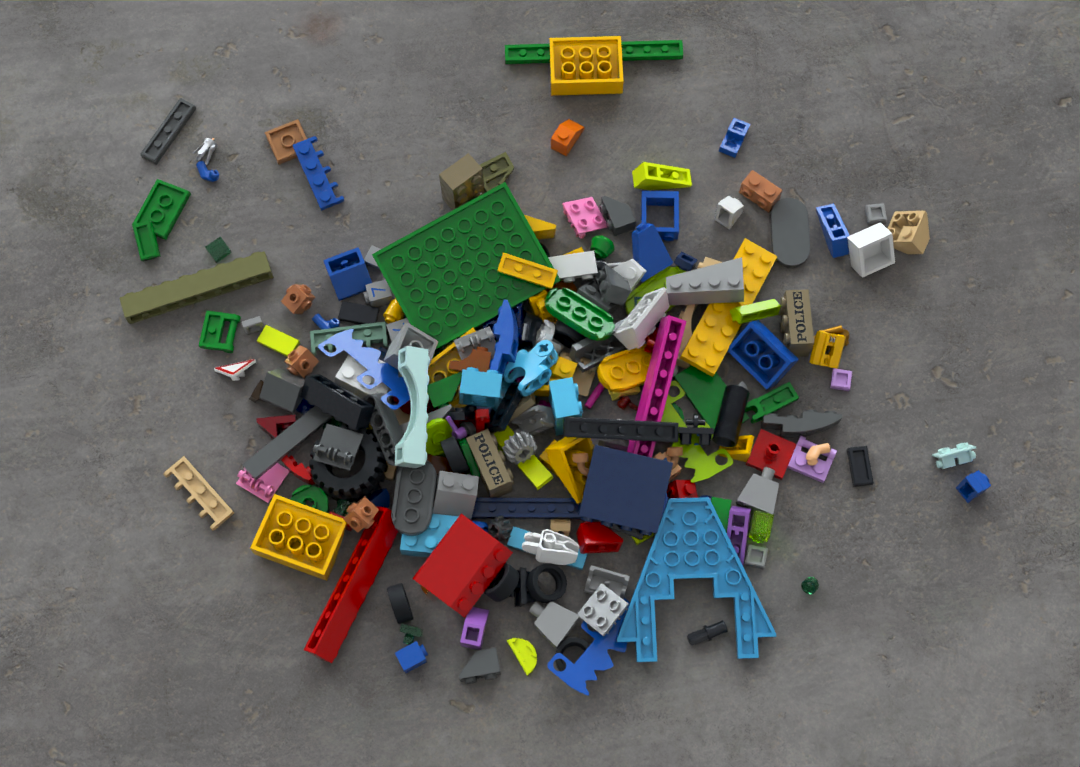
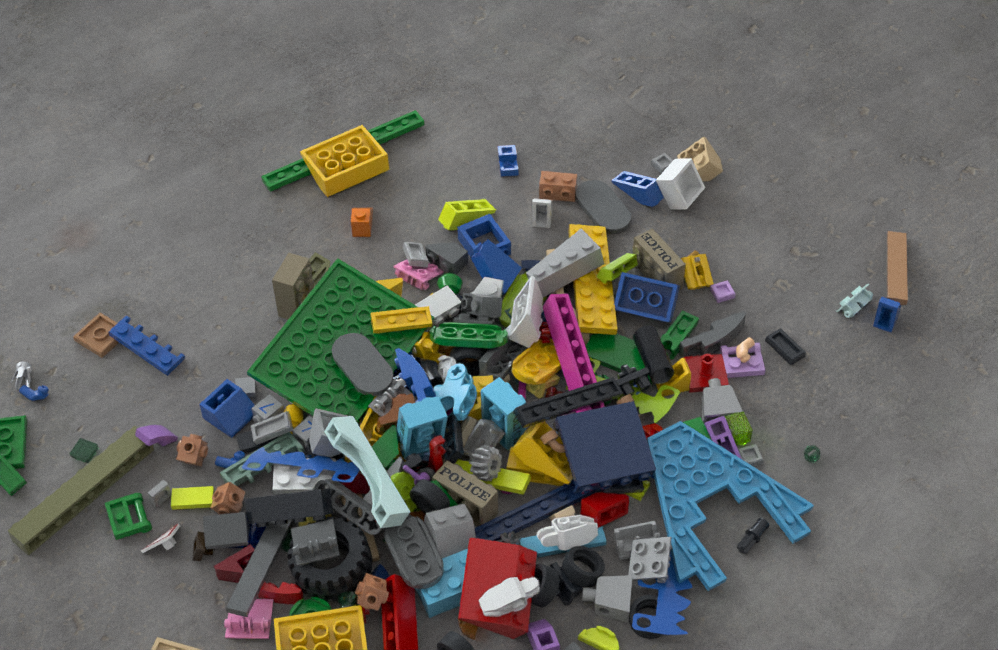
camera: 30 degrees left, 20 degrees down
(278, 268) = (155, 434): none -> medium lavender slope
(371, 312) = (271, 427): none -> light grey tile
(461, 585) = (508, 596): none -> white hinge
(469, 298) = (362, 364): none -> dark grey tile
(590, 199) = (415, 254): none -> light grey tile
(1015, 444) = (897, 267): none -> medium nougat tile

